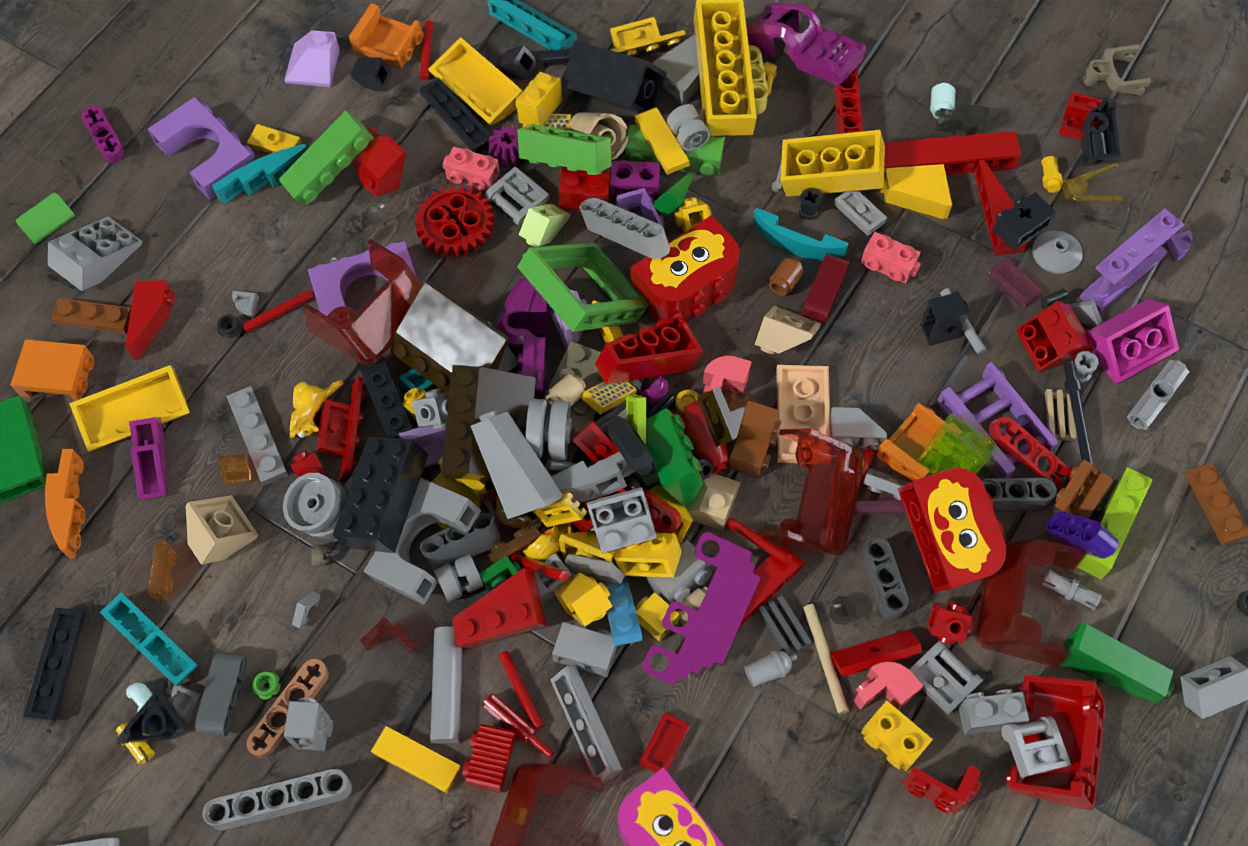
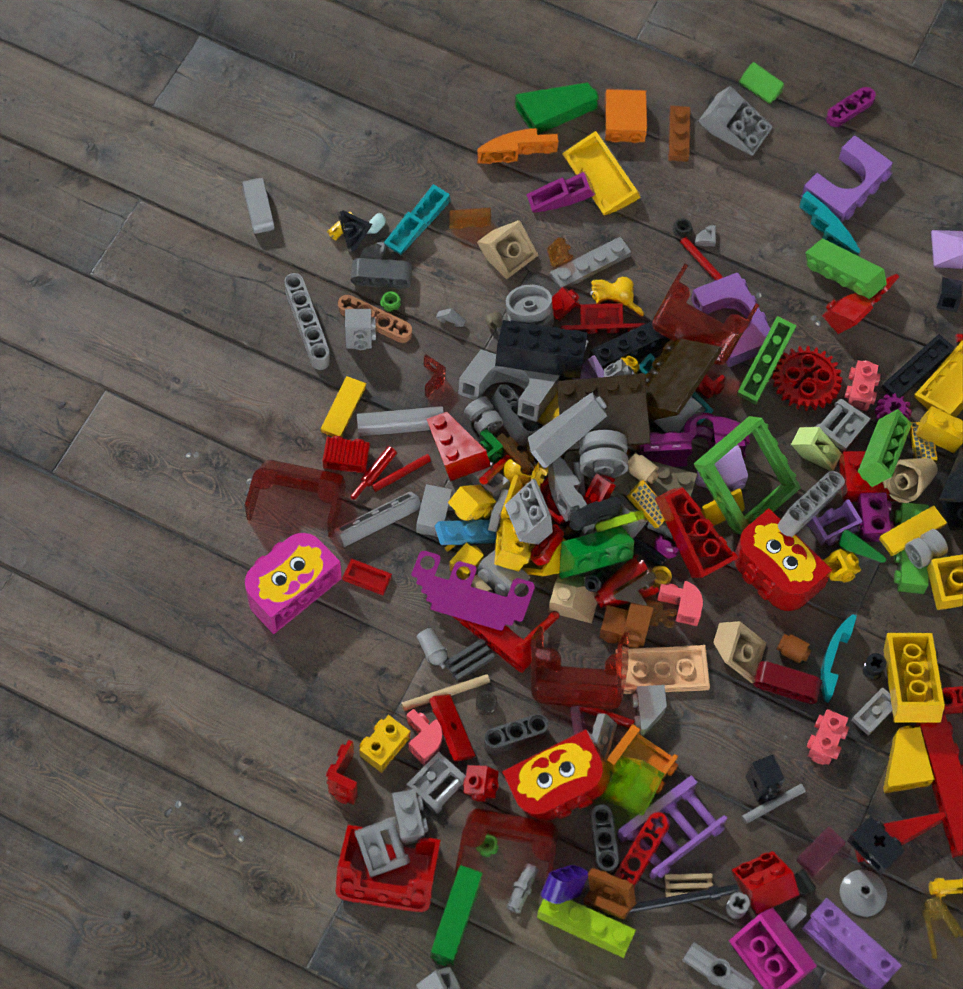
camera: 80 degrees right, 0 degrees up
(54, 665) = (394, 165): black plate -> none
(148, 313) = (684, 169): red slope -> none
(271, 140) = (866, 231): yellow plate -> none
(434, 250) = (766, 360): none -> bright green brick

